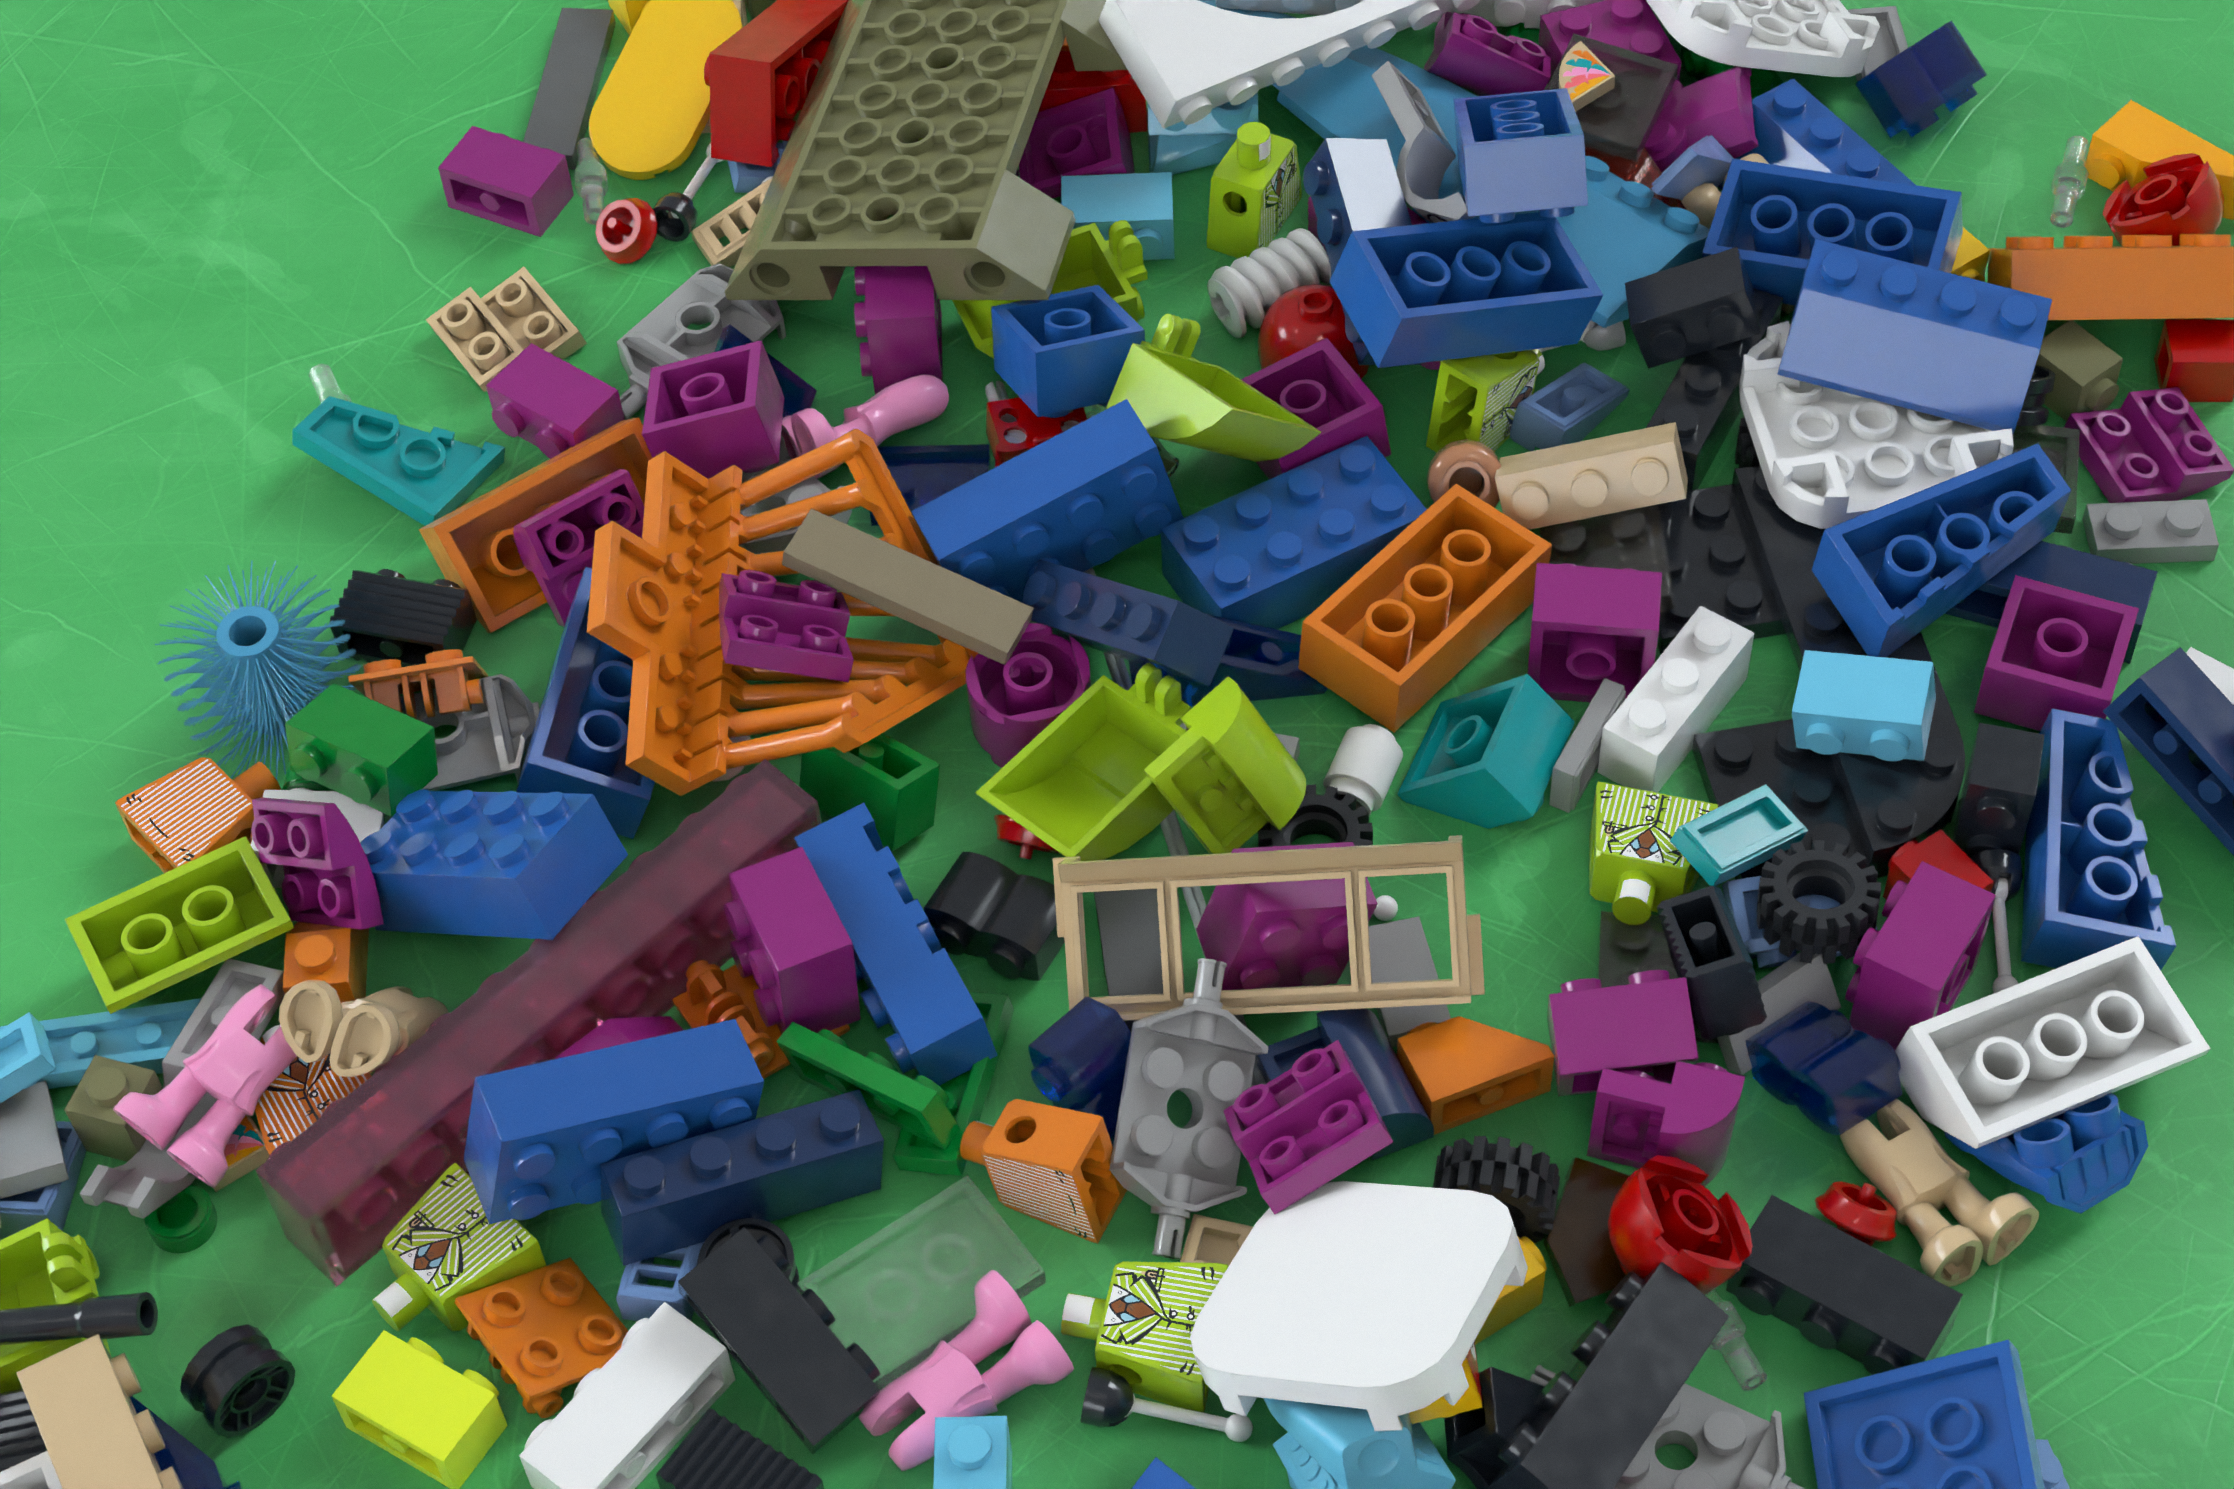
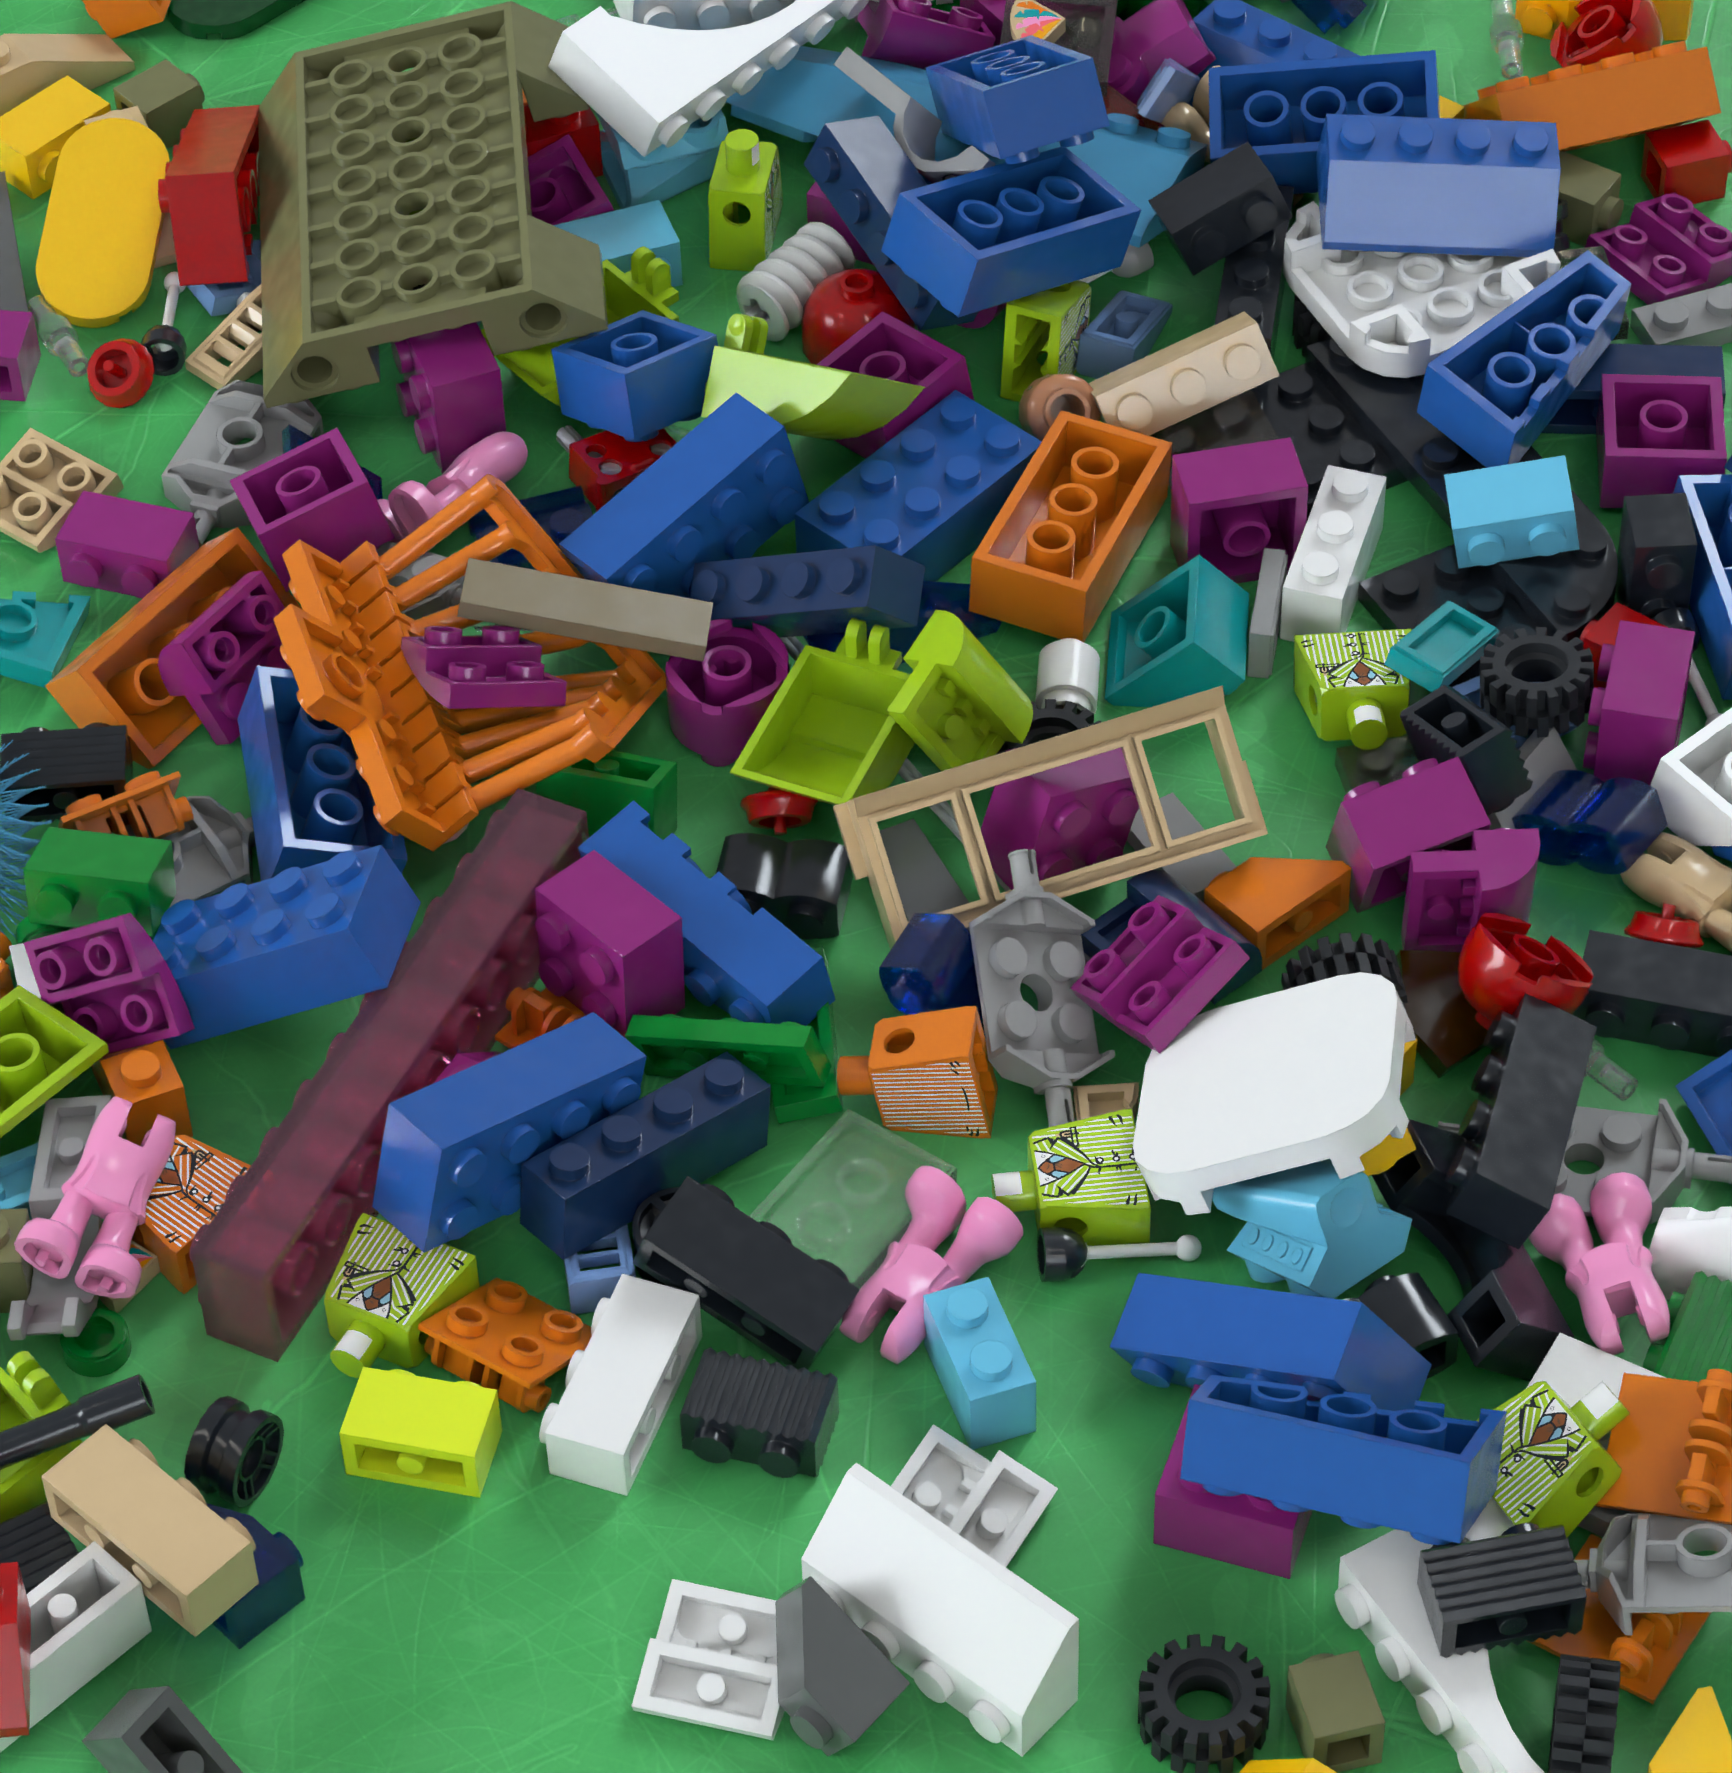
camera: 20 degrees left, 5 degrees down
(356, 1033) = (230, 1116): tan piece -> none

